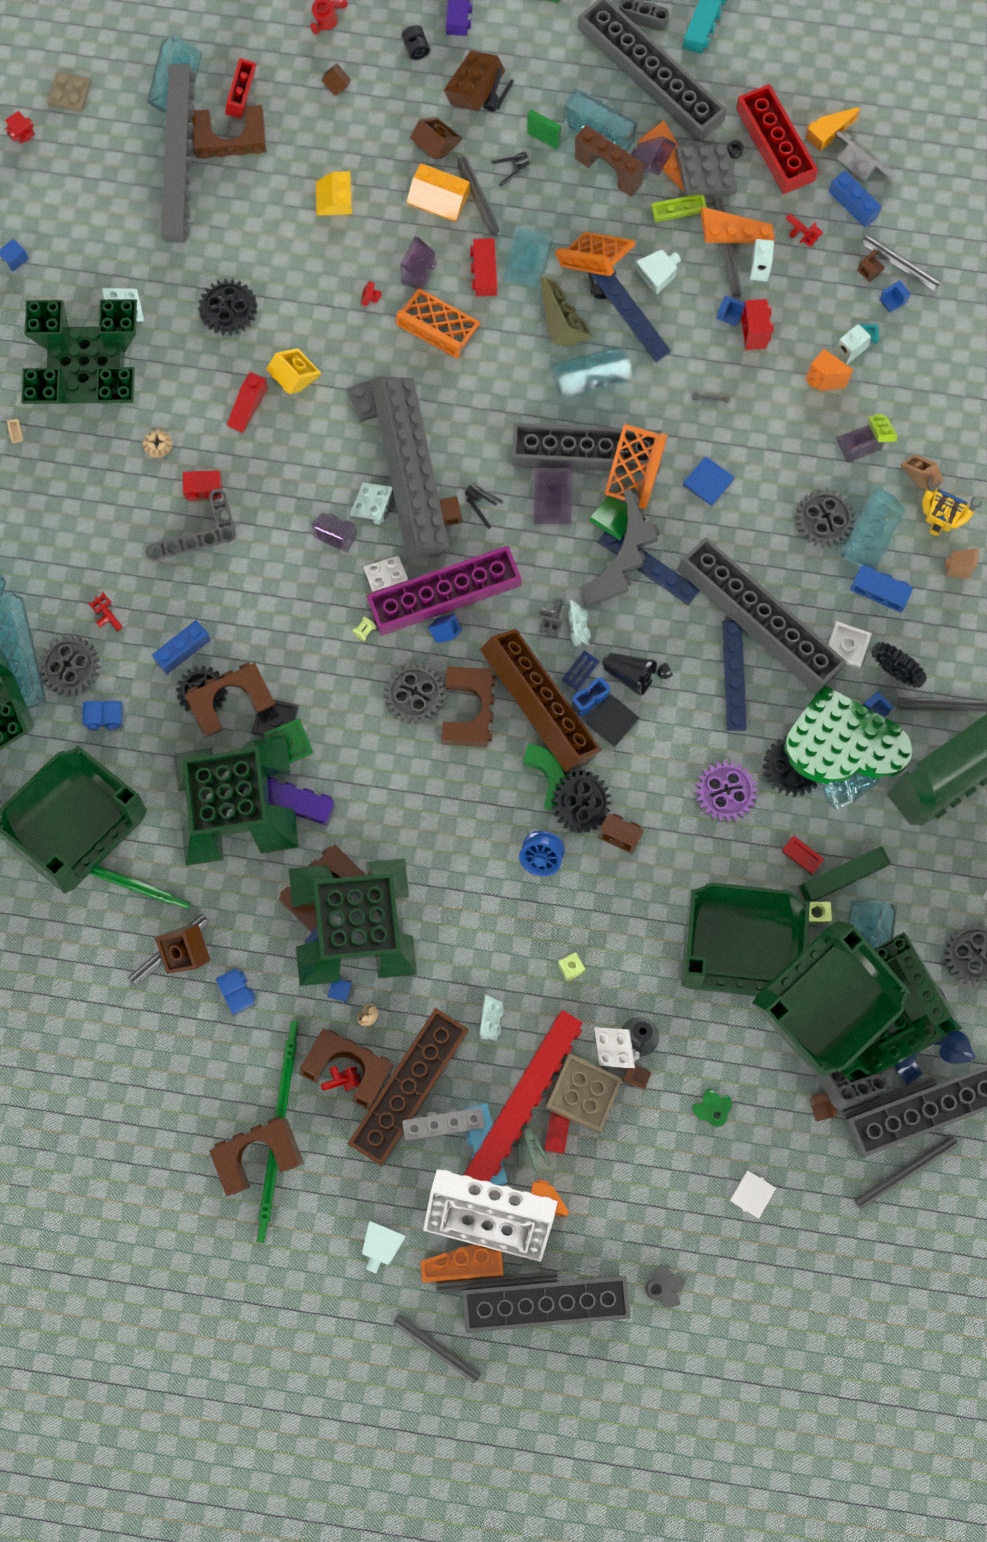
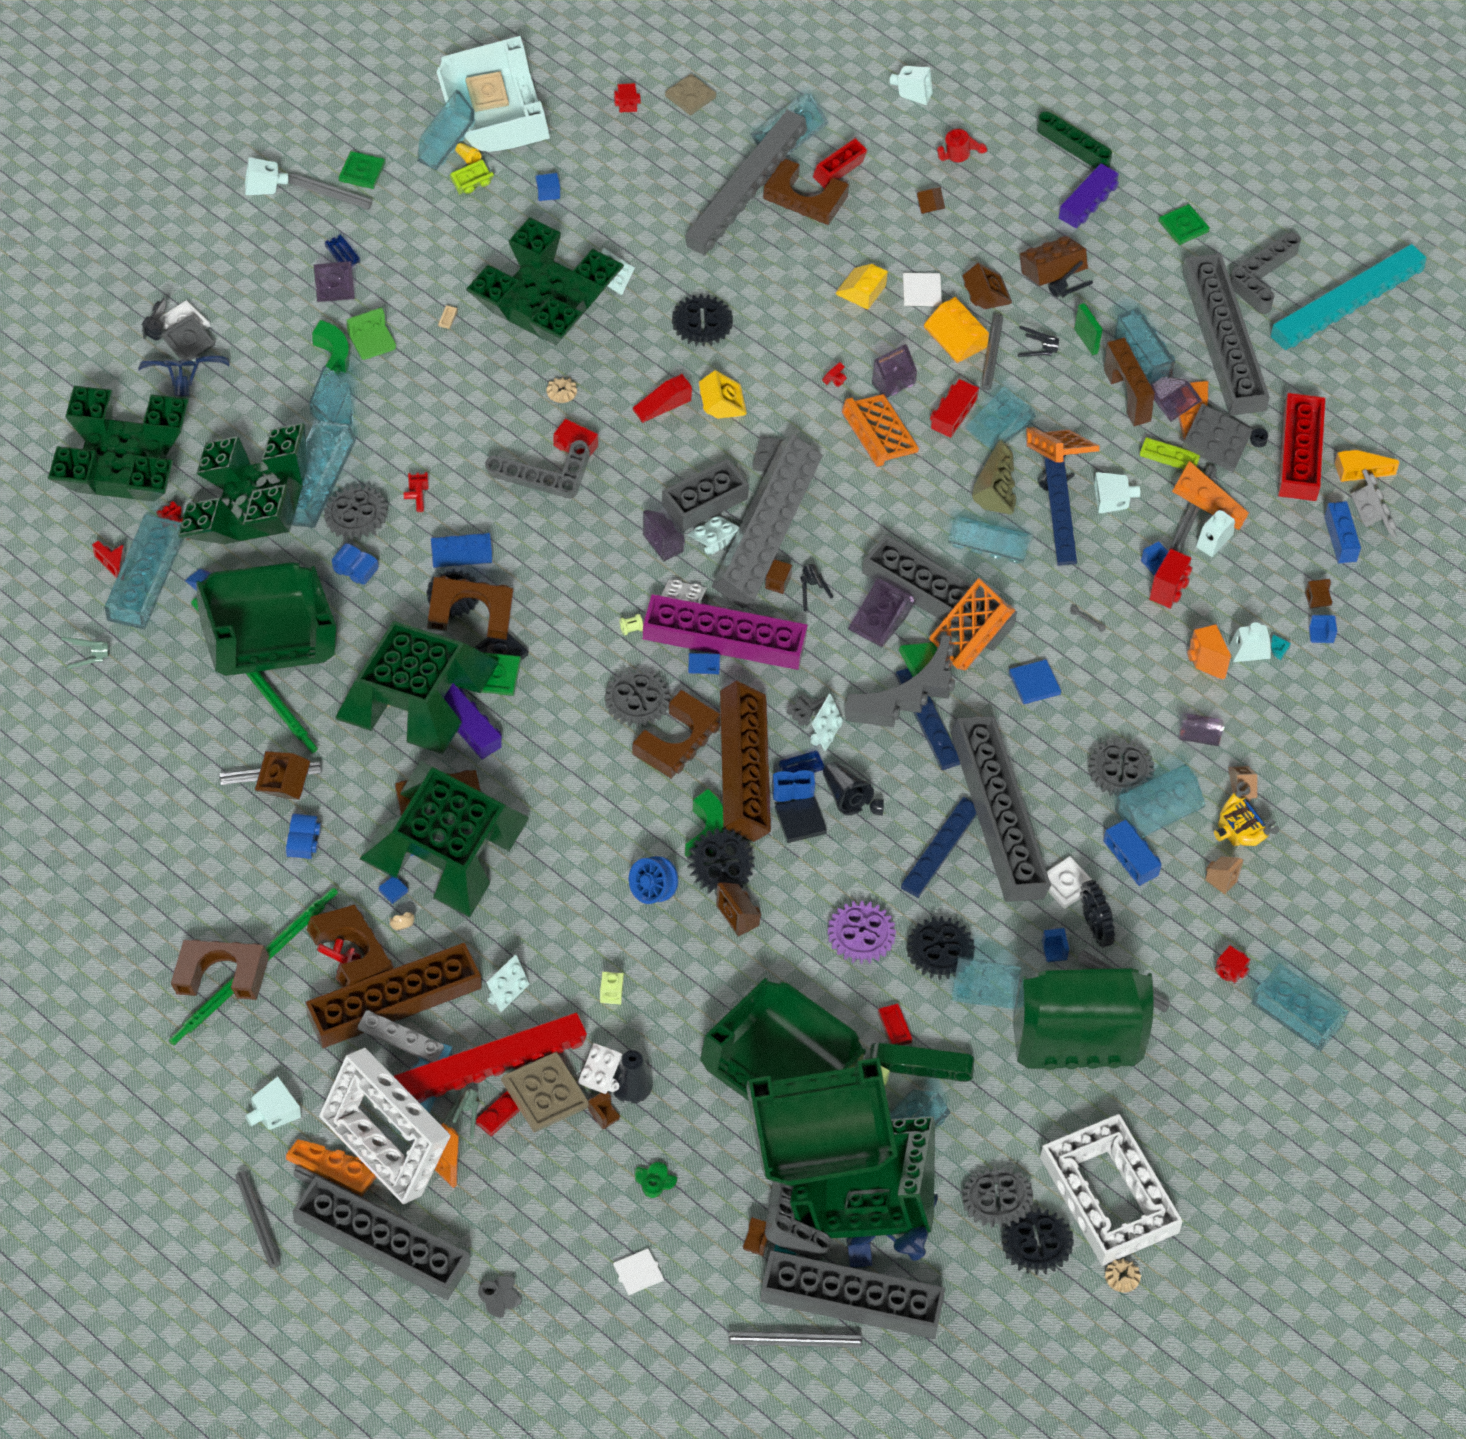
camera: 30 degrees right, 20 degrees down
(343, 472) = (705, 494): none -> dark grey brick
(383, 169) = (922, 289): none -> white tile
(415, 42) = (1023, 207): black wheel -> none
(810, 234) = (1278, 536): red arm -> none
(843, 738) = (994, 939): plate -> none
(882, 428) = (1227, 720): lime plate -> none
(901, 262) = (1351, 607): axle -> none

